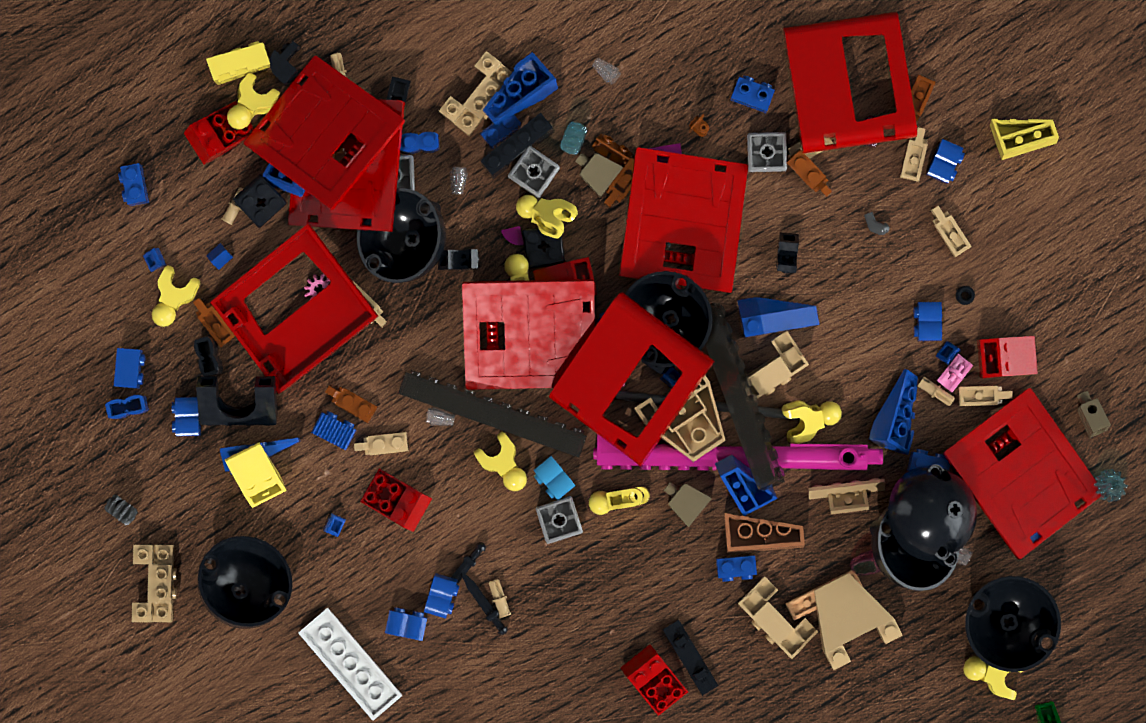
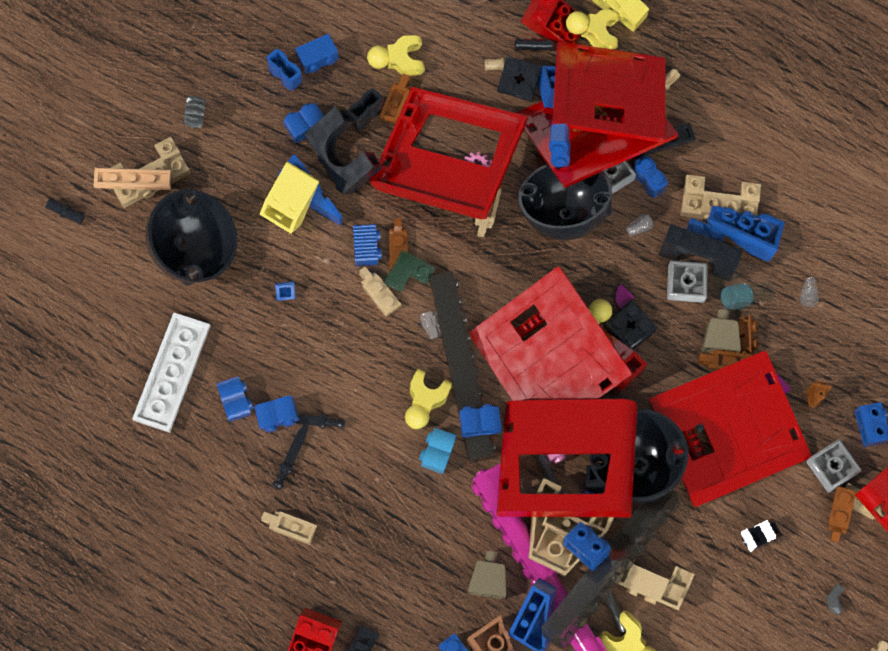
camera: 50 degrees right, 15 degrees down
(147, 674) = (65, 211): none -> black pin
(154, 259) = (419, 27): blue slope -> none
(156, 601) = (132, 179): none -> light nougat tile
(219, 256) = (453, 76): blue slope -> none
(232, 166) = (533, 44): none -> black pin
(280, 63) = (640, 34): black brick -> none
(353, 213) = (559, 145): none -> blue brick
(376, 406) = (406, 266): none -> clear green plate
(396, 500) = (337, 329): red slope -> none
(459, 260) = (573, 262): black brick -> none
(499, 598) = (304, 466): tan axle -> none
(545, 640) = (290, 526): none -> tan hinge
(547, 213) = (660, 310): light yellow piece -> none
(547, 515) = (403, 463): light grey brick -> none
(553, 430) = (480, 421): none -> blue brick
(602, 502) = (454, 515): light yellow piece -> none
(713, 409) = (587, 545): none -> blue brick
(769, 316) = (696, 556): blue wedge -> none

